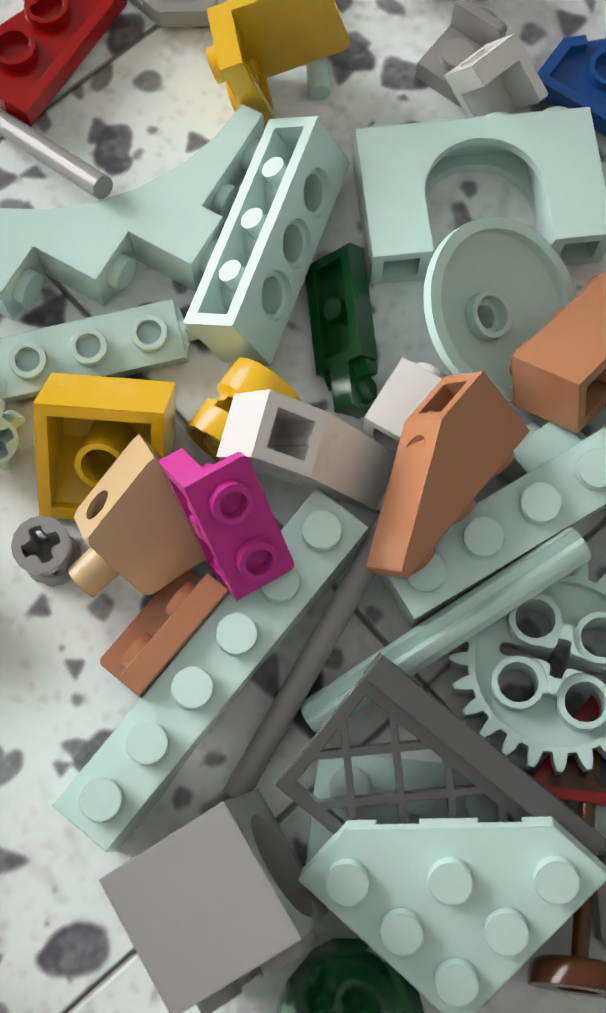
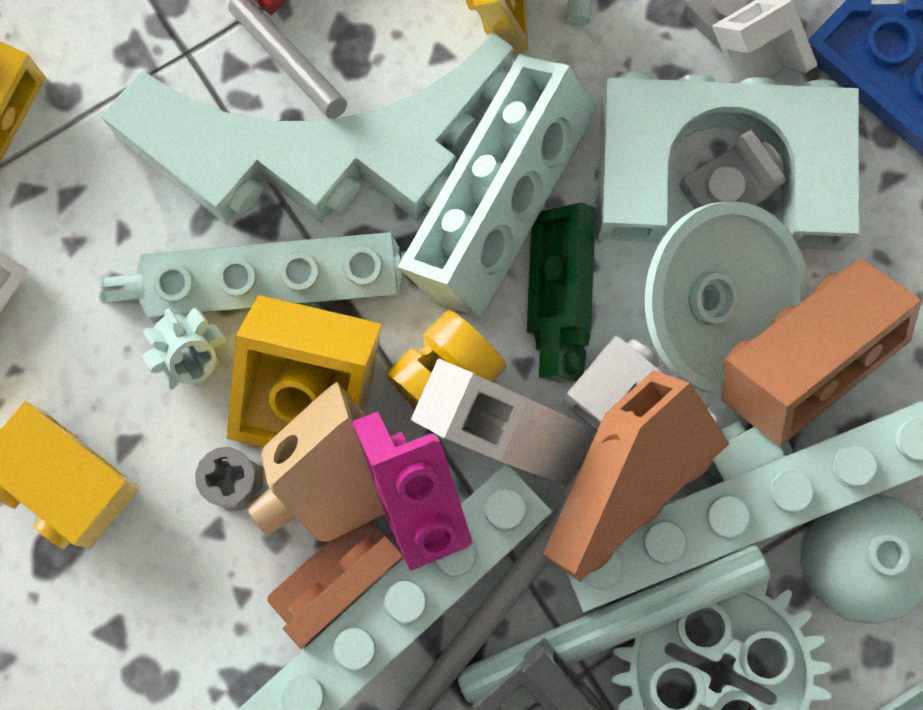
camera: 10 degrees right, 5 degrees up
(501, 193) = (744, 173): none -> light grey bracket

